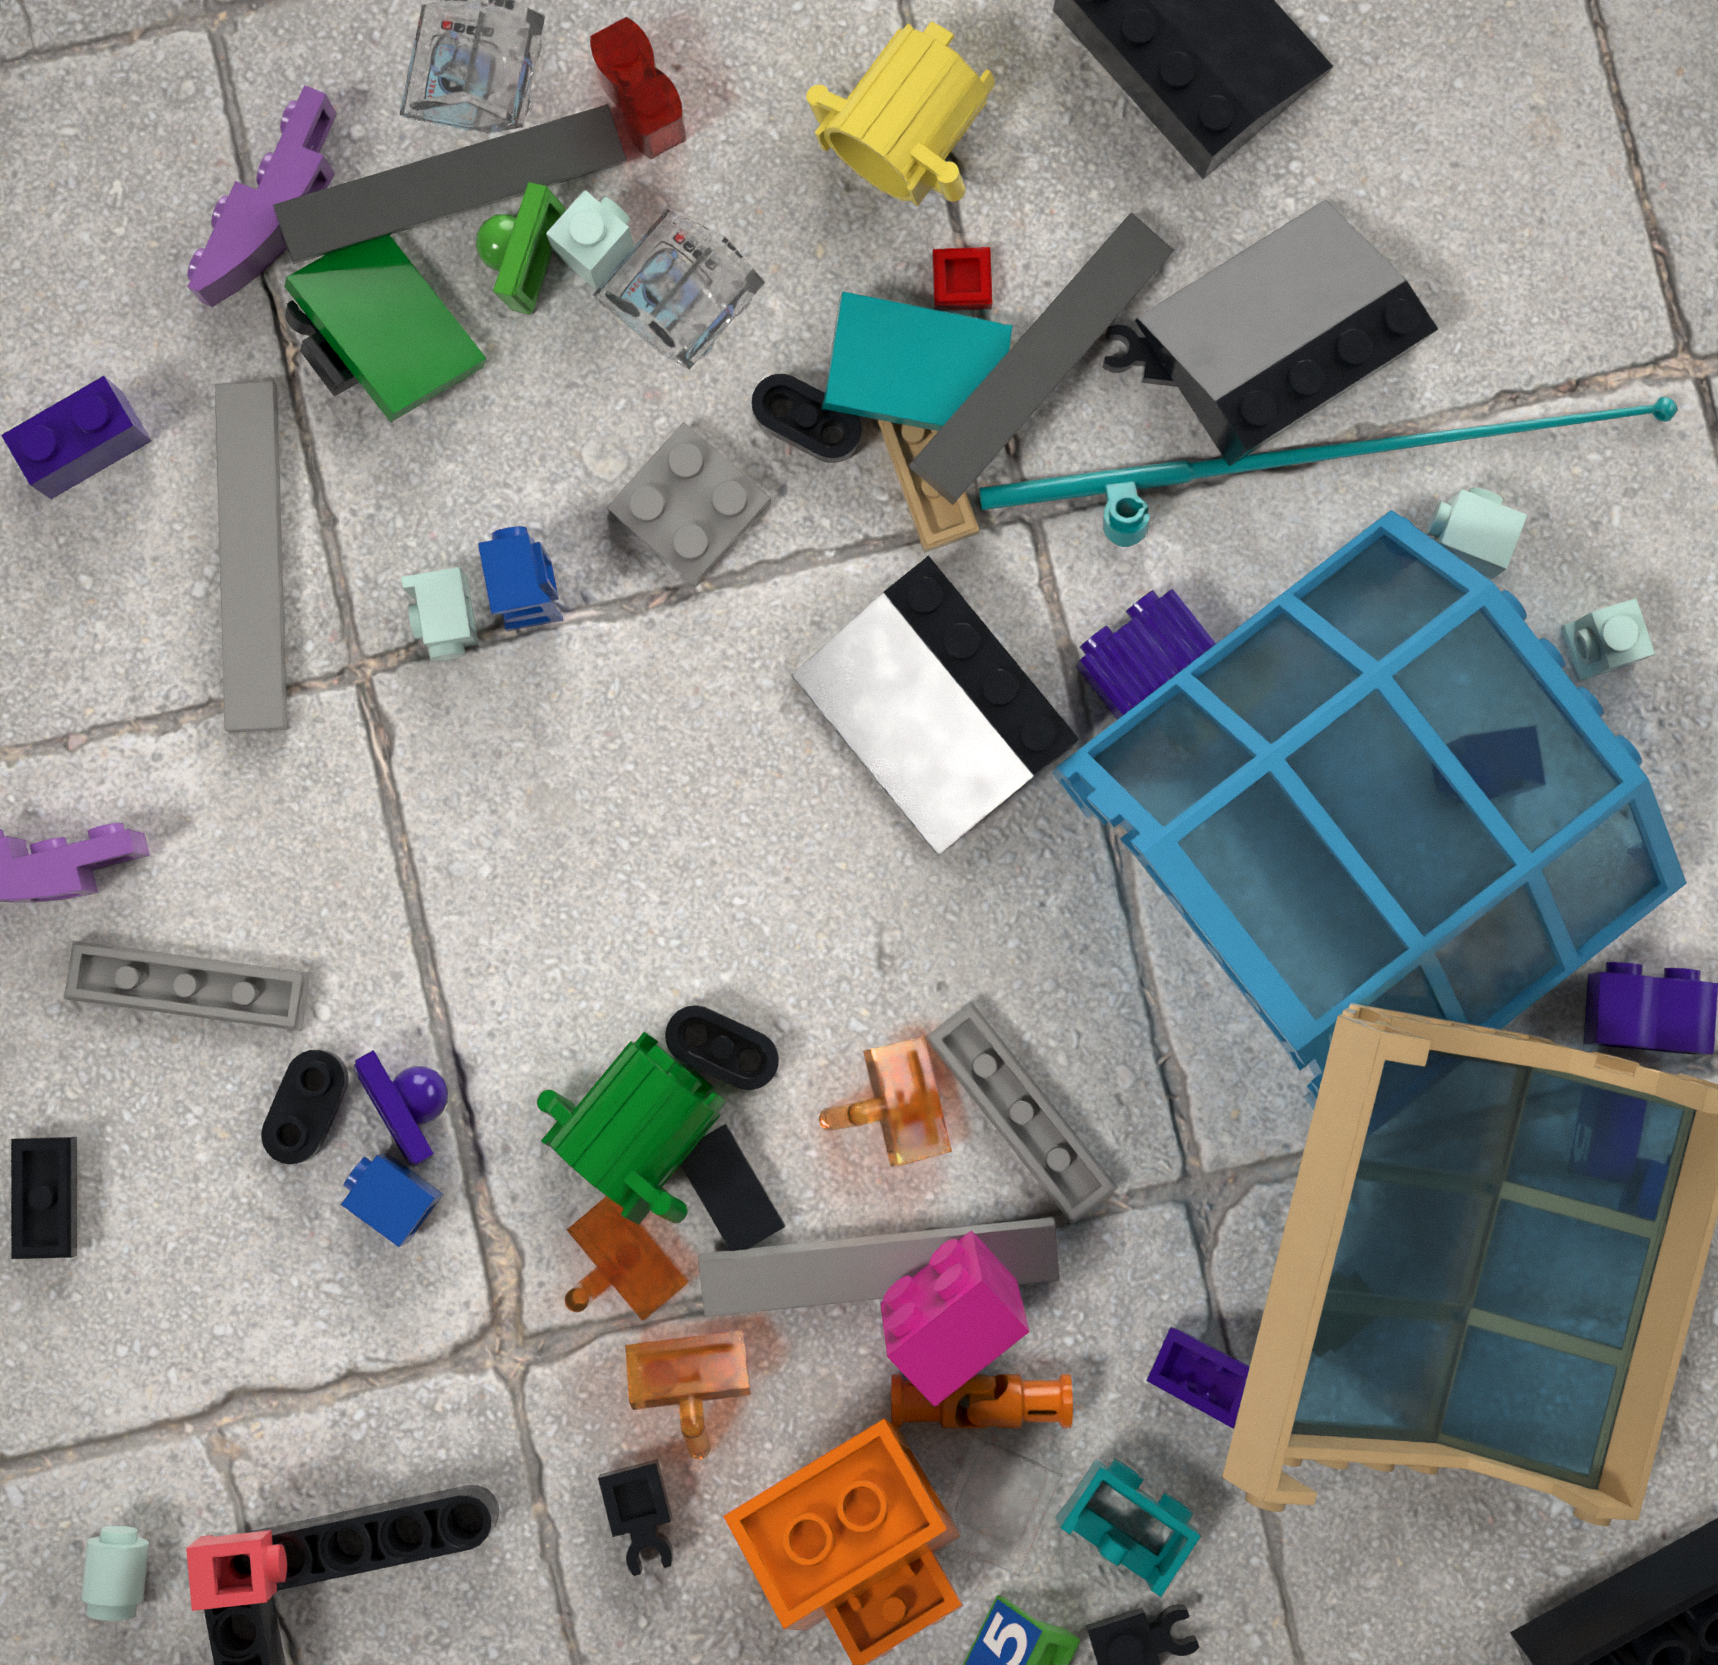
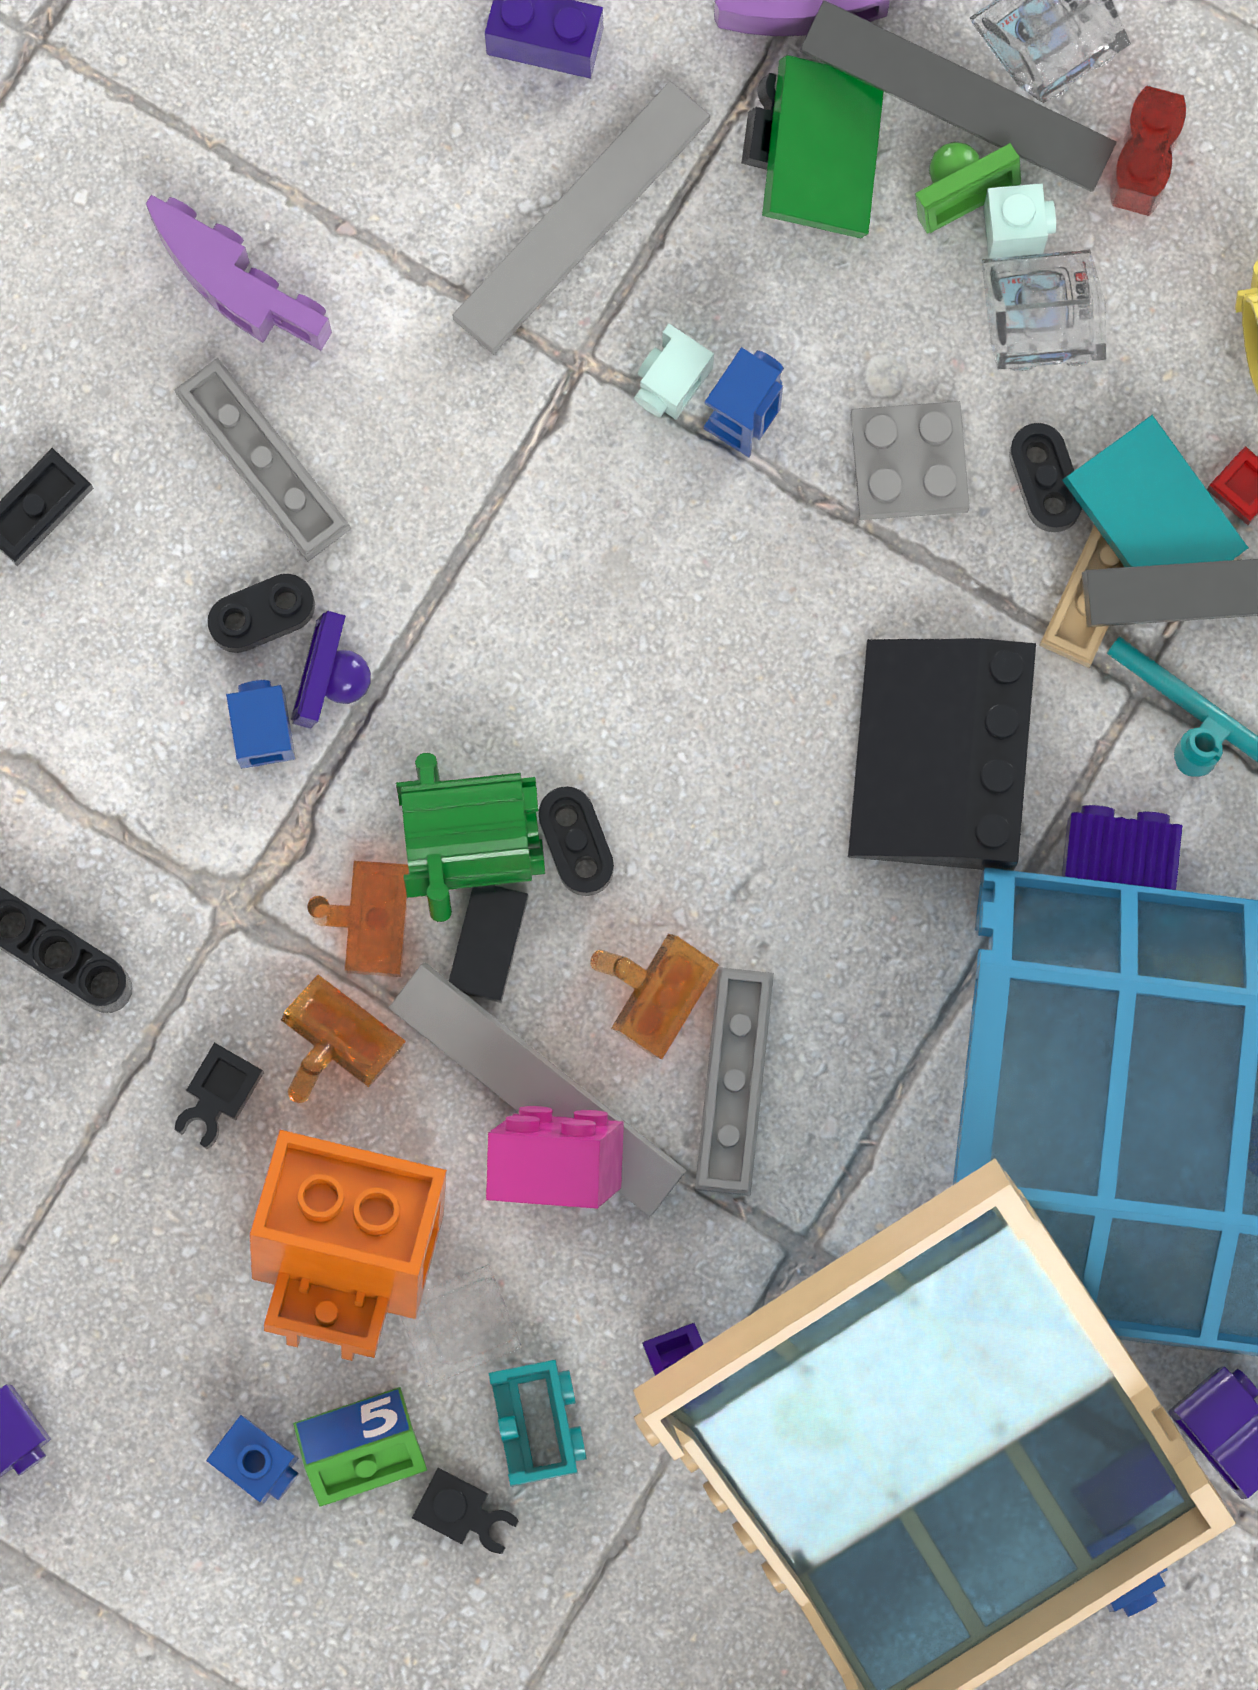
camera: 50 degrees right, 5 degrees down
(992, 1401) = (532, 1259): orange piece -> none

